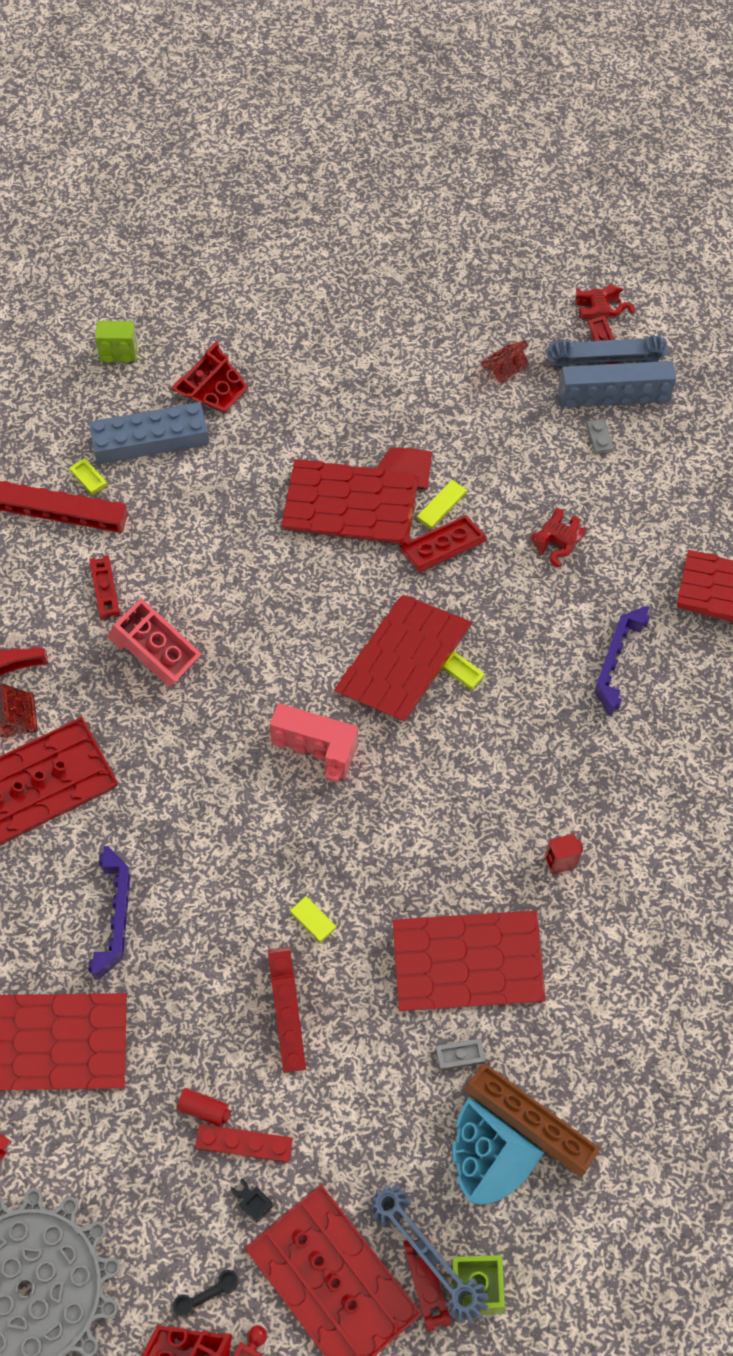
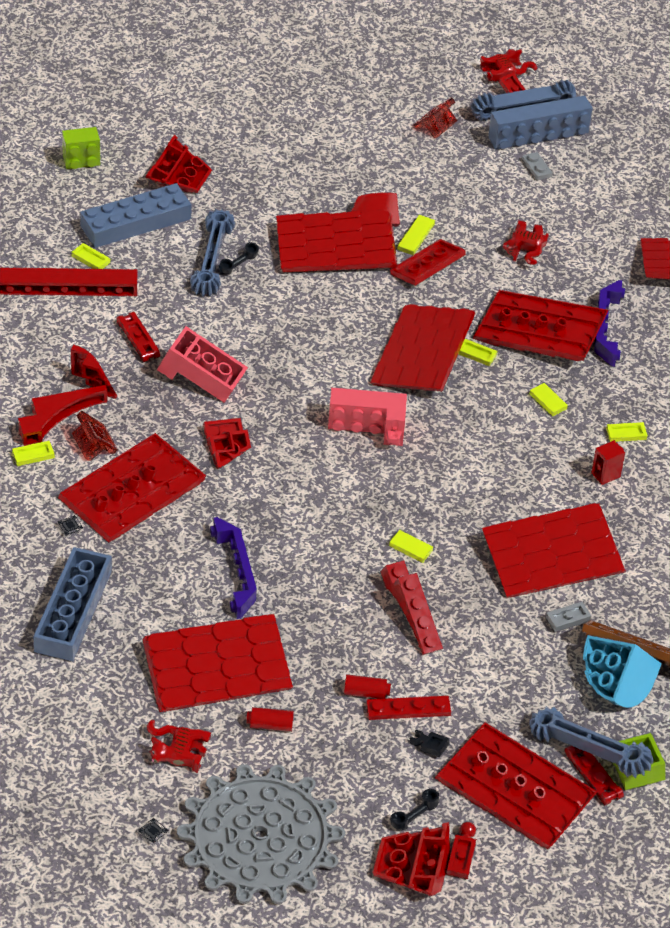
camera: 15 degrees left, 15 degrees down
(34, 629) = (86, 366): none -> red slope
(84, 1130) = (270, 719): none -> red brick
(153, 741) = (226, 440): none -> red slope
(215, 493) = (207, 280): none -> sand blue arm
(256, 498) = (250, 252): none -> black bar
(523, 748) = (548, 399): none -> neon yellow tile
(542, 651) = (540, 325): none -> red piece
(599, 808) = (627, 431): none -> neon yellow tile

